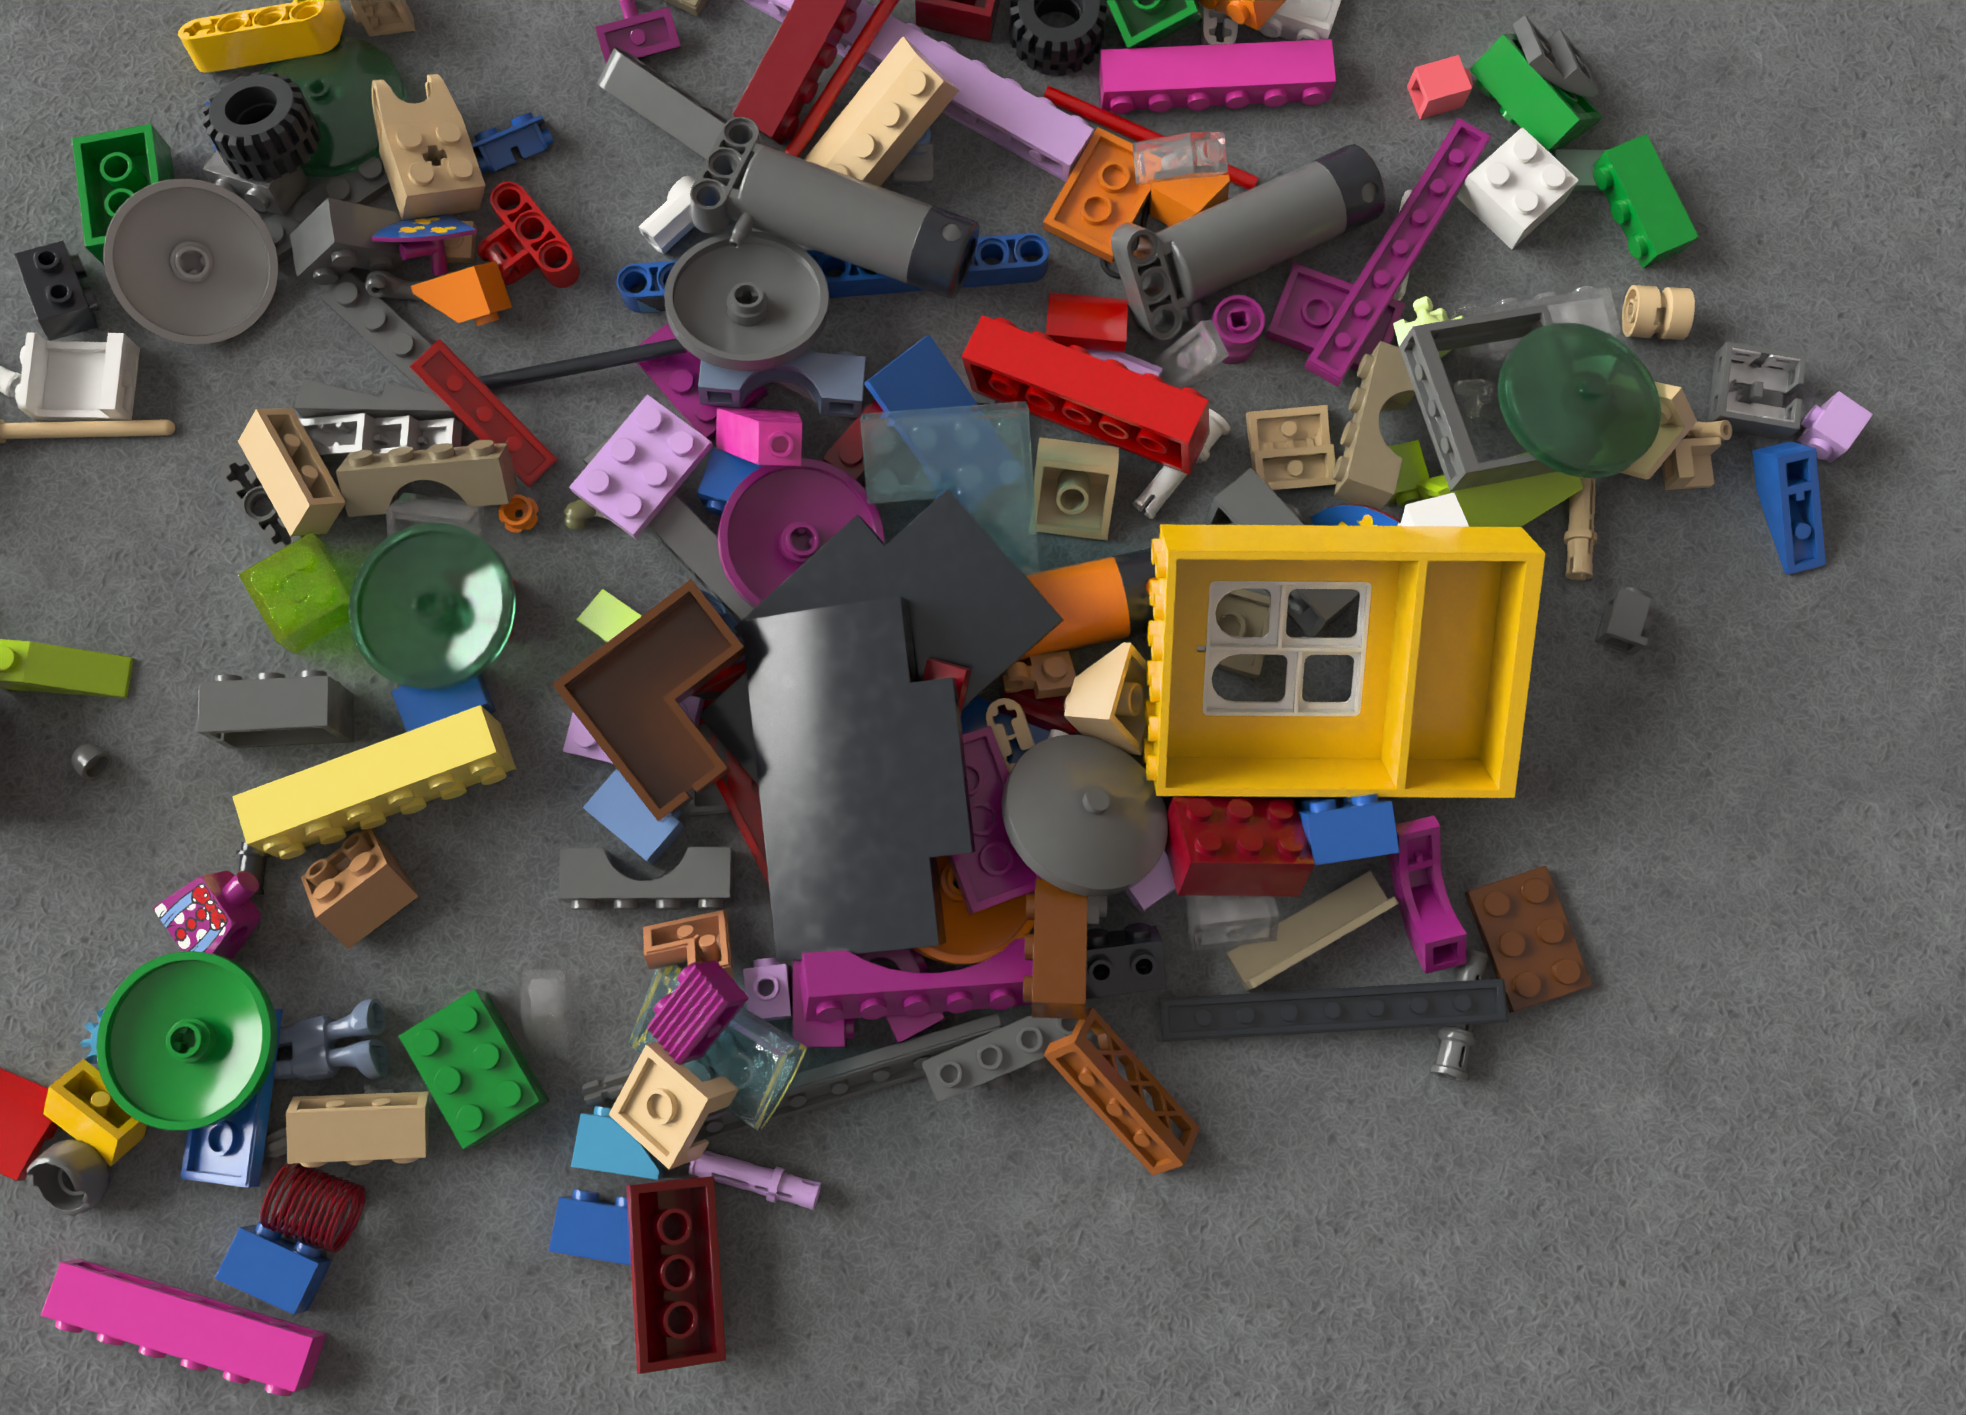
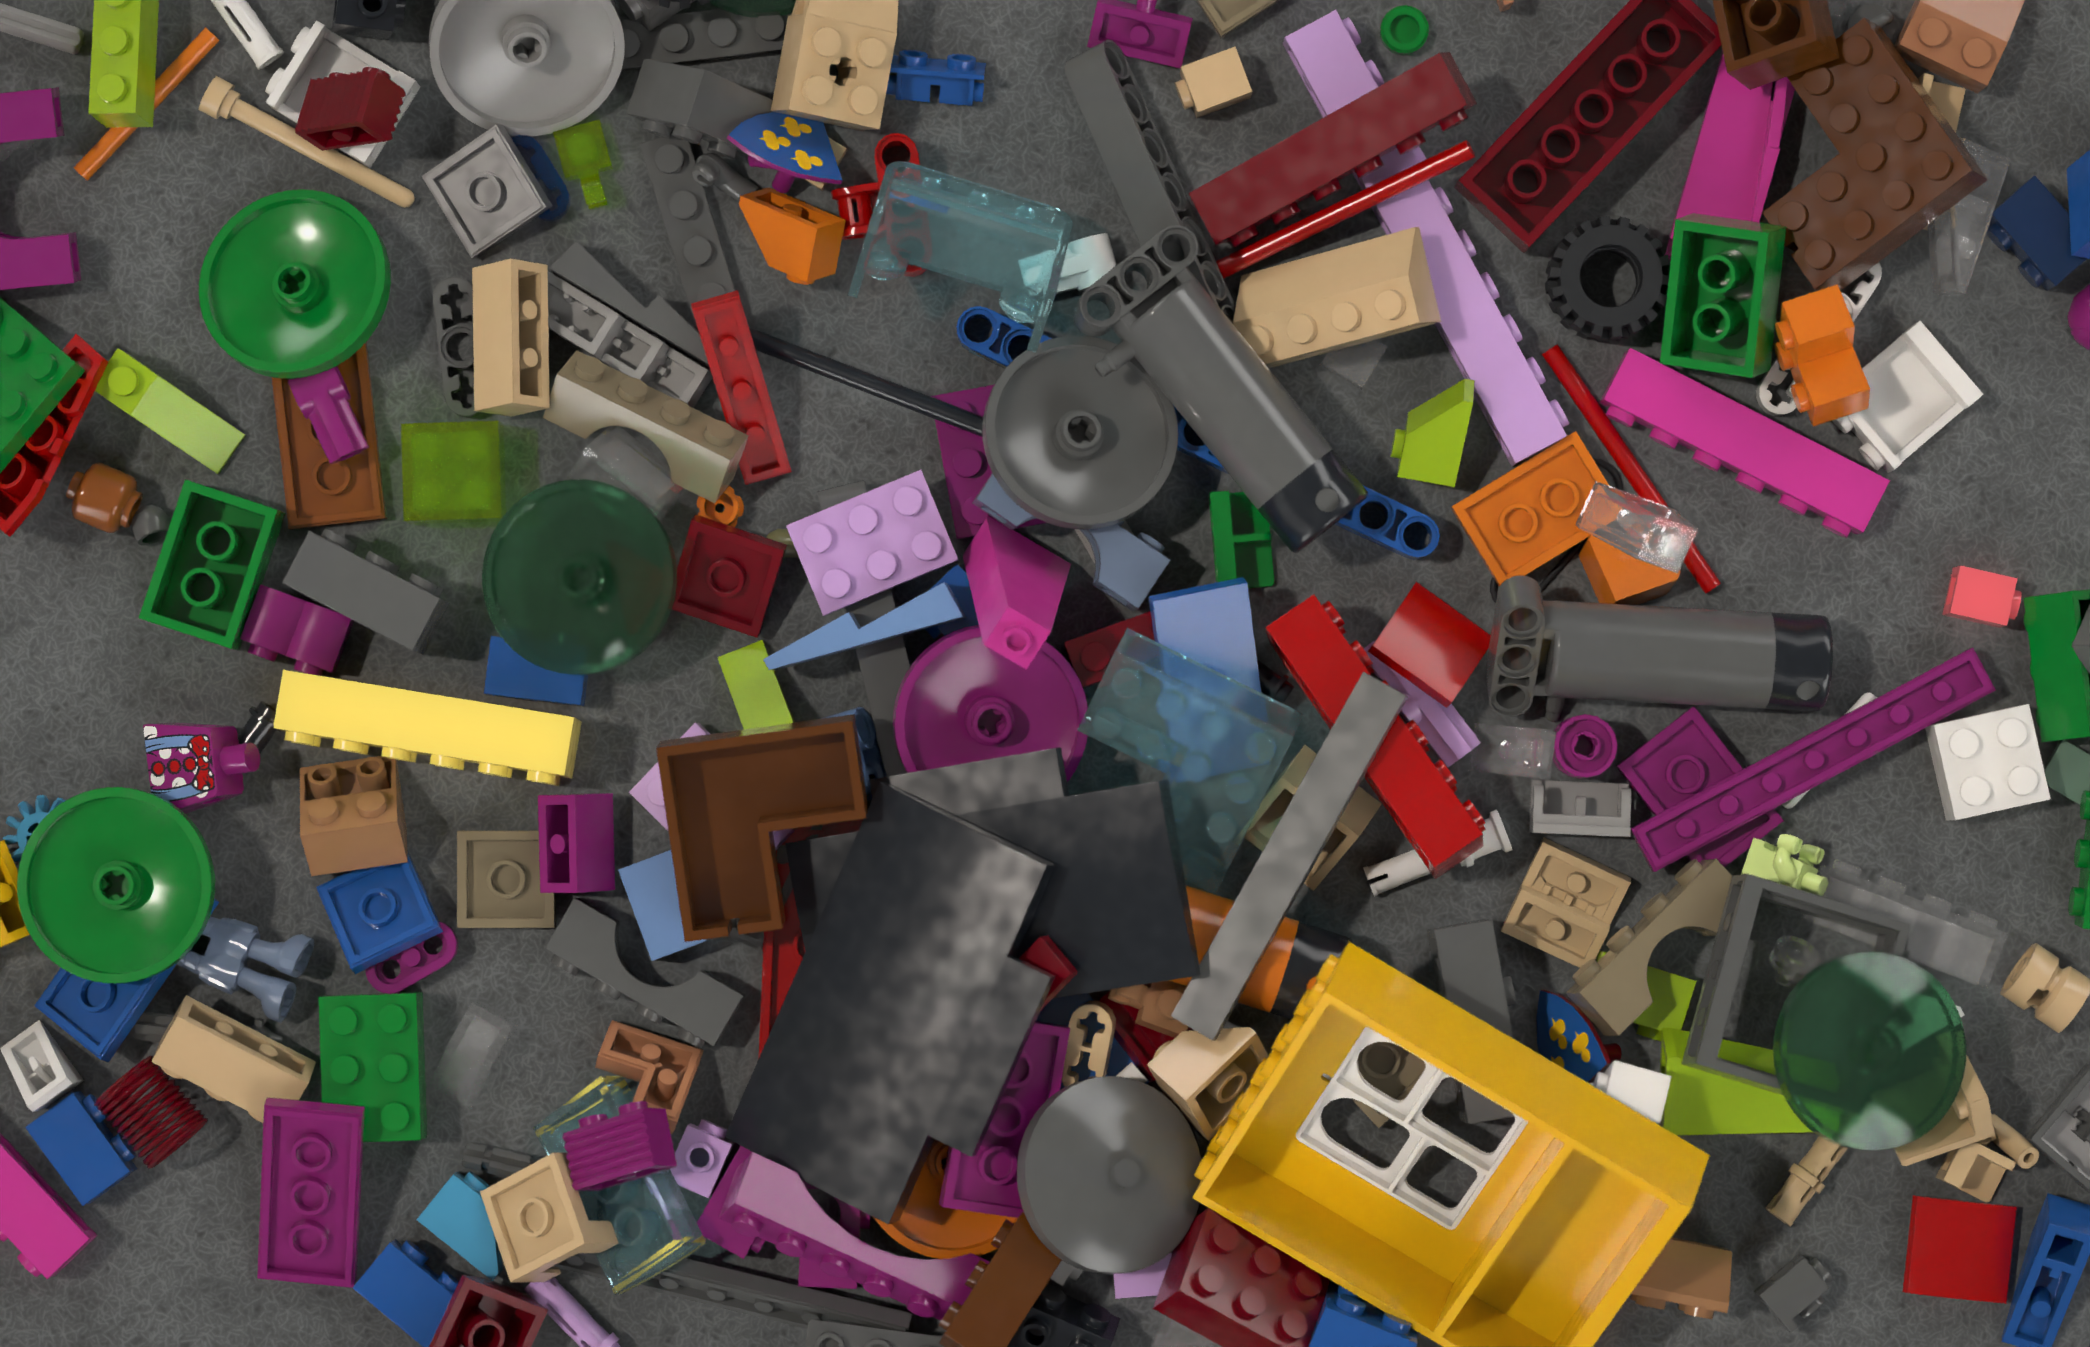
camera: 30 degrees right, 10 degrees up
(40, 759) = (104, 497): none -> dark orange head
(81, 374) = (350, 109): none -> dark red brick
(107, 524) = (294, 284): none -> green dish
(147, 760) = (211, 564): none -> green brick
(177, 595) = (326, 404): none -> magenta piece
(190, 615) = (314, 488): none -> dark orange tile
(209, 1225) = (39, 1067): none -> white slope
(222, 385) = (487, 190): none -> flat silver tile
(236, 769) = (296, 630): none -> magenta brick
(260, 354) = (548, 174): none -> clear blue beam
(287, 329) = (584, 156): none -> clear neon green plate
(416, 947) = (378, 912): none -> blue tile
(459, 965) = (414, 963): none -> magenta plate
(474, 1194) = (310, 1192): none -> magenta tile
(503, 868) = (501, 881): none -> dark tan plate
(540, 807) = (576, 843): none -> magenta brick
(548, 553) = (727, 575): none -> dark red plate
(587, 221) = (967, 235): none -> clear light blue windscreen
(655, 539) = (845, 633): none -> medium blue slope
(709, 41) = (1213, 83): none -> tan brick
(904, 322) = (1240, 540): none -> green panel
(1003, 179) = (1435, 436): none -> lime slope
(1077, 501) = (1289, 856): none -> tile
(1261, 378) = (1580, 808): none -> light grey hinge
(1559, 649) = (1689, 1275): none -> medium nougat slope
(1717, 525) = (1959, 1249): none -> red slope

